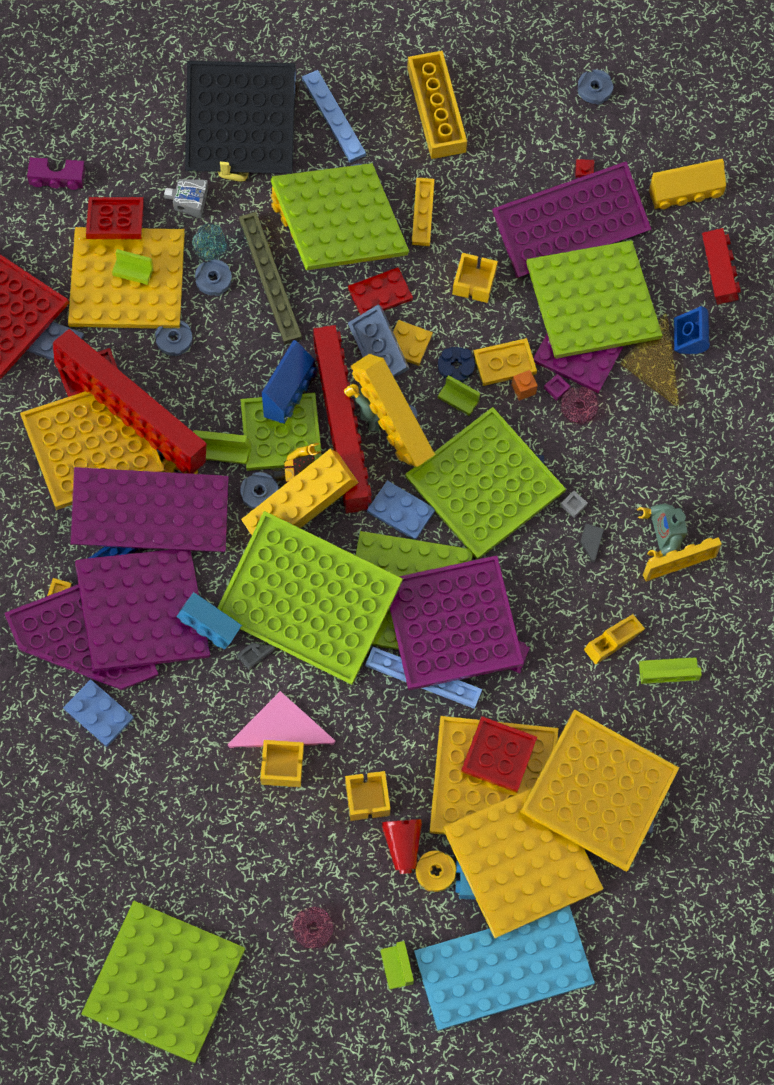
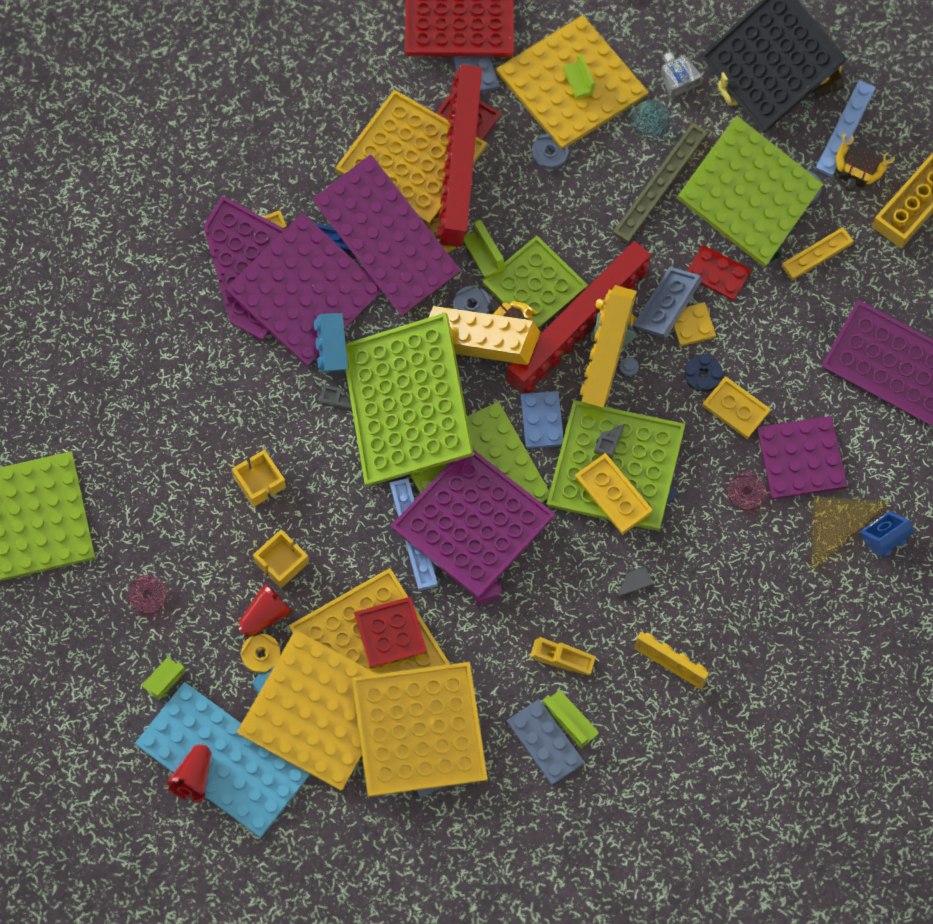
camera: 55 degrees right, 0 degrees up
(98, 713) = (200, 321): medium blue plate -> none
(115, 218) = (612, 35): red plate -> none
(217, 286) = (631, 135): sand blue plate -> none
(281, 722) = (293, 457): bright pink tile -> none
(288, 383) = (574, 256): blue slope -> none
(375, 129) = (858, 166): none -> torso
(459, 395) = (676, 394): lime panel -> none
(463, 473) = (608, 441): none -> dark grey tile
(474, 281) = (787, 332): yellow piece -> none
(506, 999) = (192, 774): none -> red cone
(512, 500) = (613, 493): none -> yellow plate
(524, 385) = (727, 435): orange brick -> none
(557, 387) = (747, 462): magenta plate -> none
(574, 504) = (654, 546): light grey plate -> none
(593, 299) = (849, 436): lime plate -> none
(668, 526) = (692, 632): sand green torso -> none
(674, 703) = (545, 742): none -> sand blue plate

